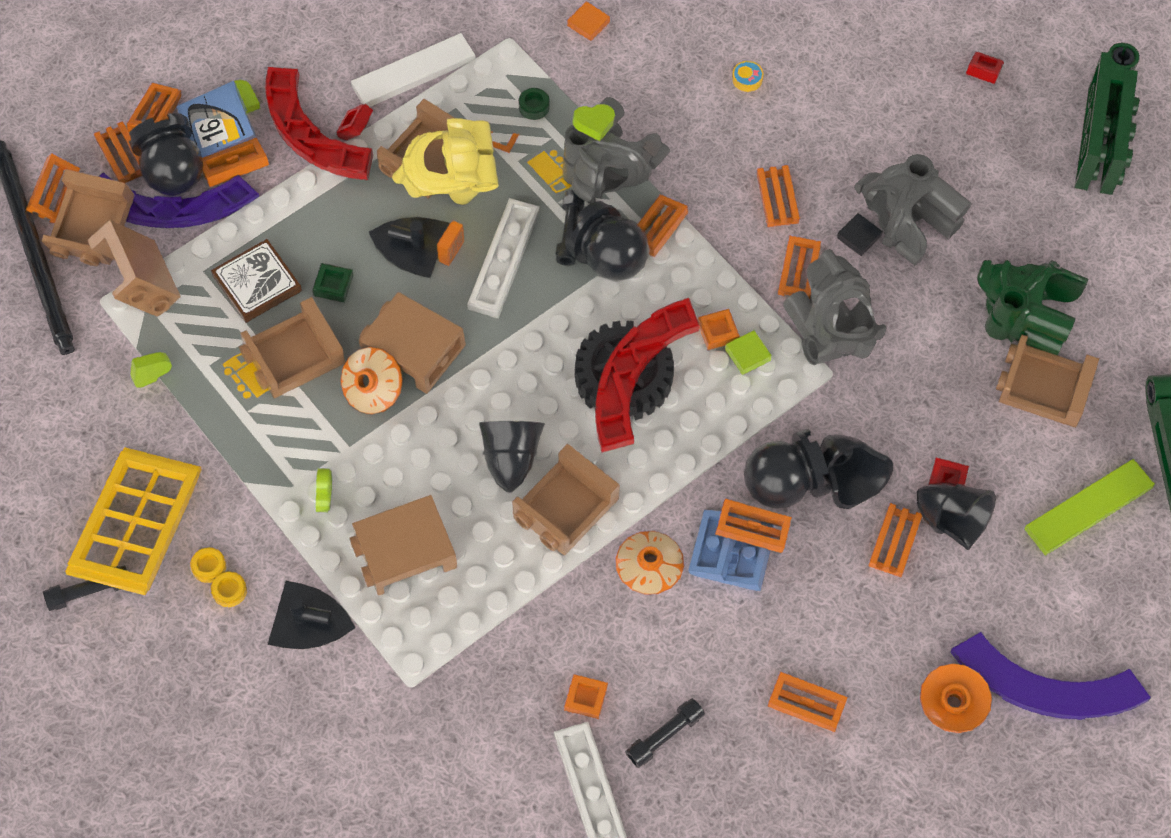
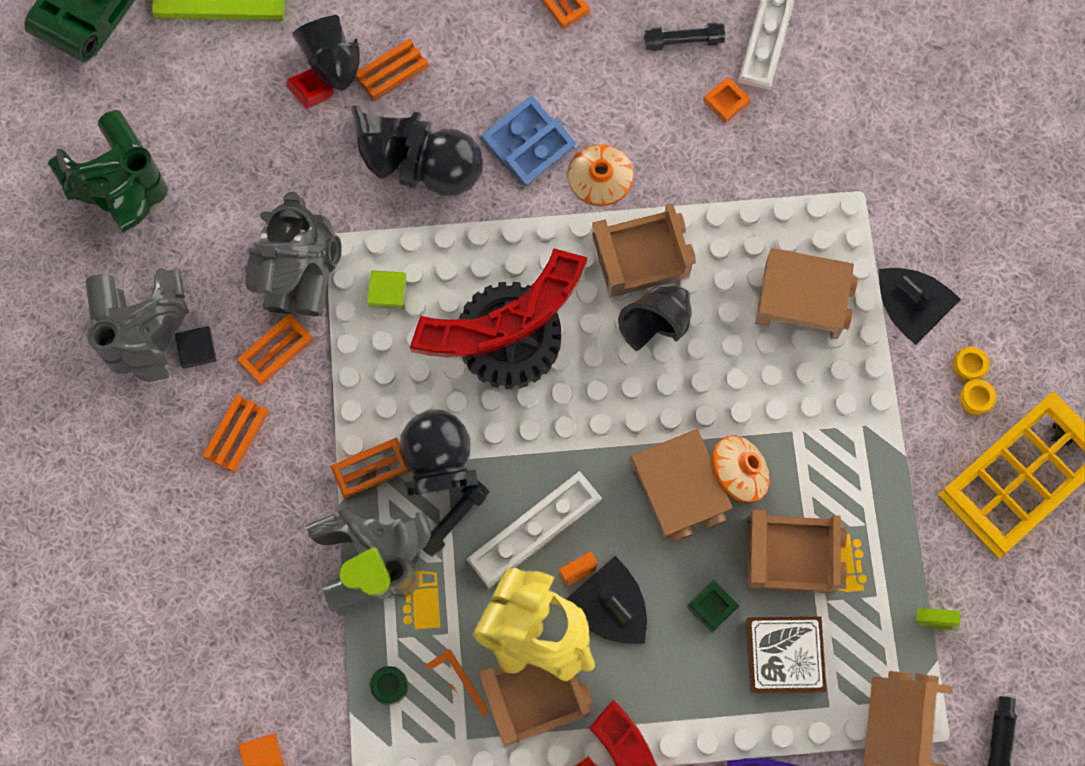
camera: 145 degrees left, 10 degrees up
(323, 490) = (844, 389): lime tile -> none
(718, 329) = (395, 328): orange tile -> none
(747, 76) = (158, 582): tile -> none
(749, 537) = (518, 155): orange tile -> none
(1046, 383) = (159, 111): medium nougat panel -> none

